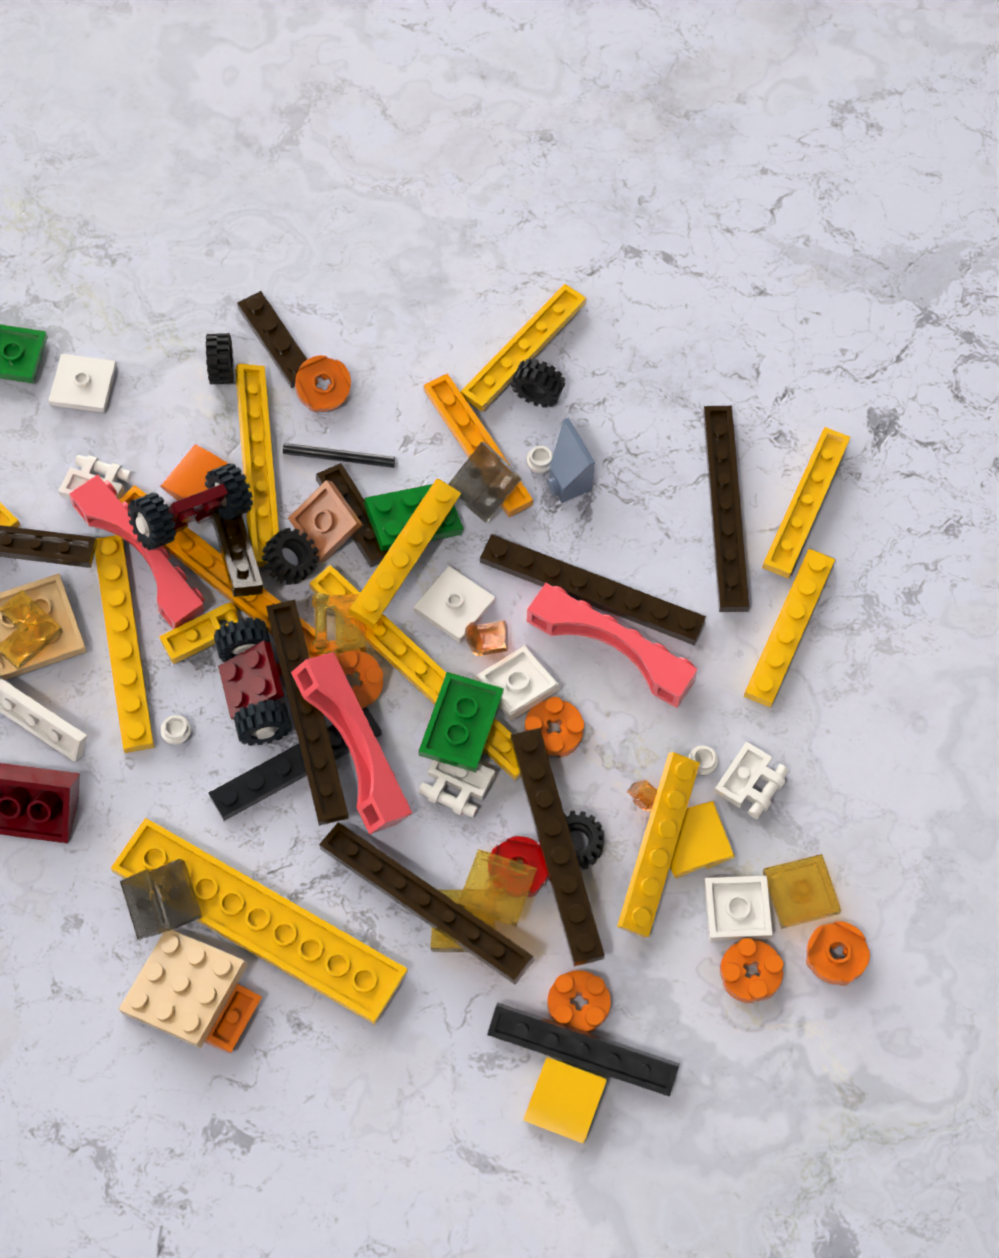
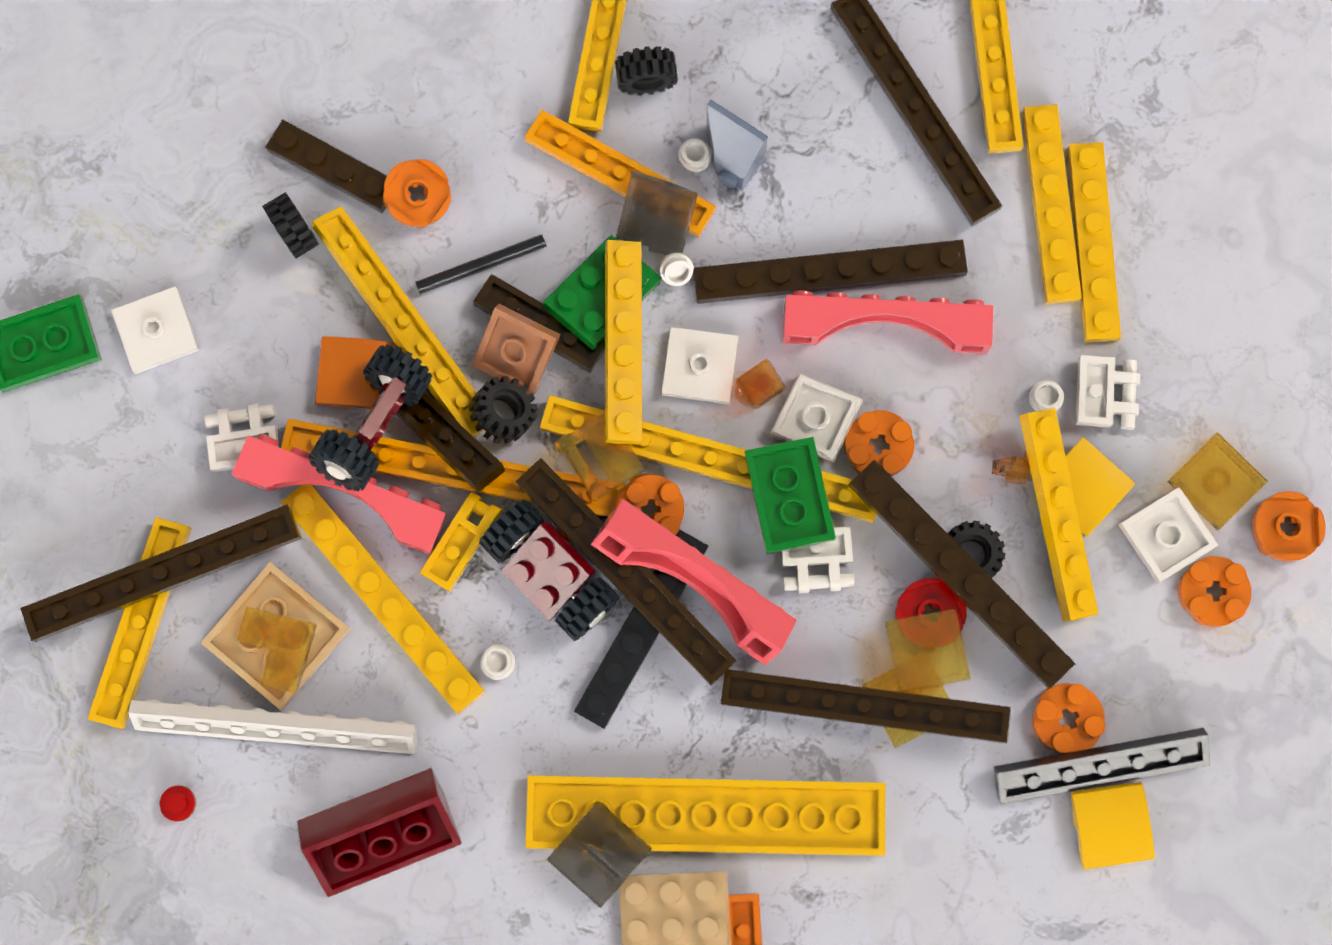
camera: 25 degrees left, 15 degrees up
(478, 528) = (676, 269): none -> white plate
(806, 671) = (1094, 242): none -> yellow plate

